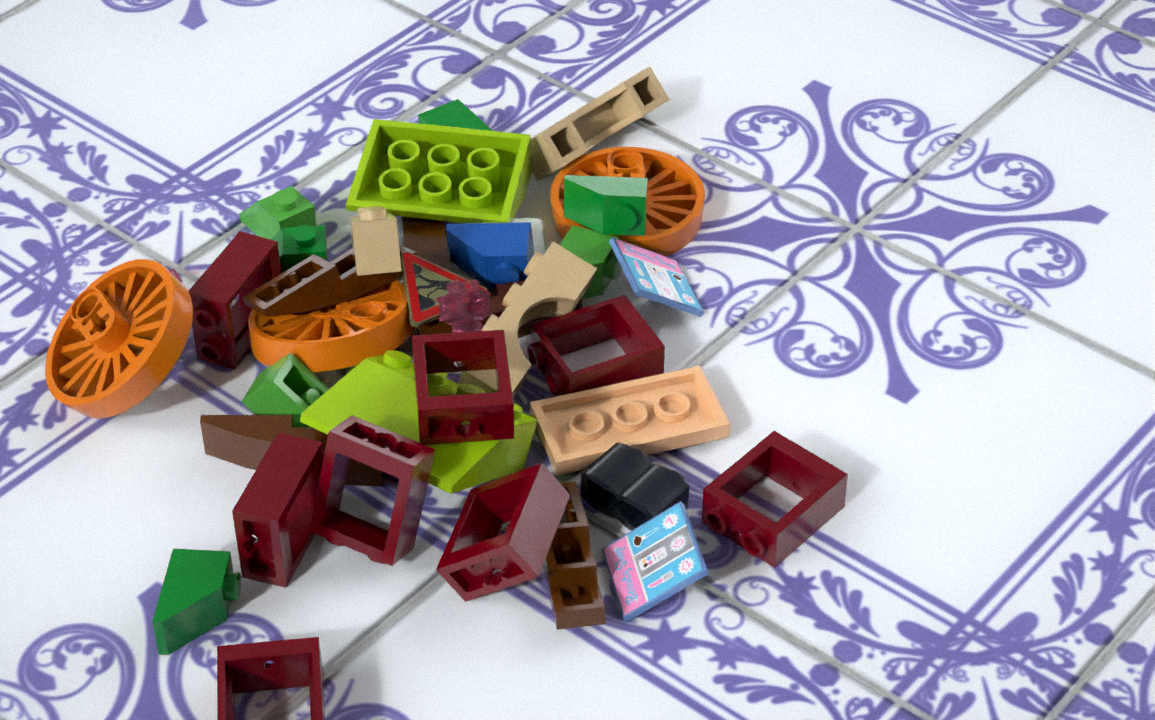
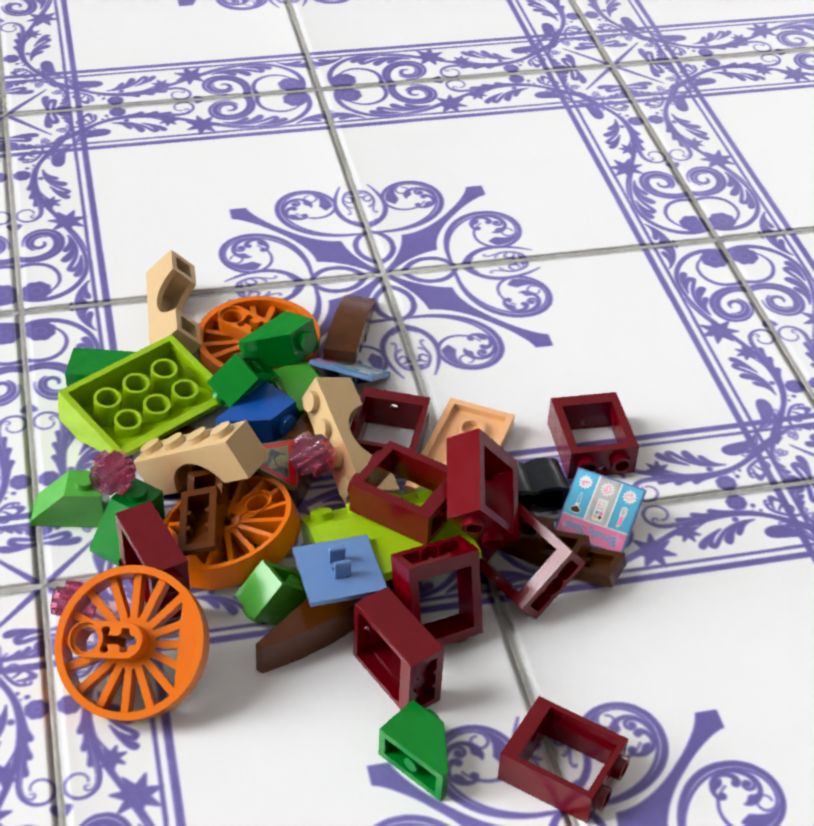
camera: 55 degrees left, 0 degrees up
(294, 202) = (112, 472): none -> clear pink gear
(319, 401) = (338, 570): none -> medium blue piece
(516, 200) = (240, 377): none -> green slope
(541, 397) = (482, 489): none -> dark red window
(714, 242) = (349, 328): none -> reddish brown slope

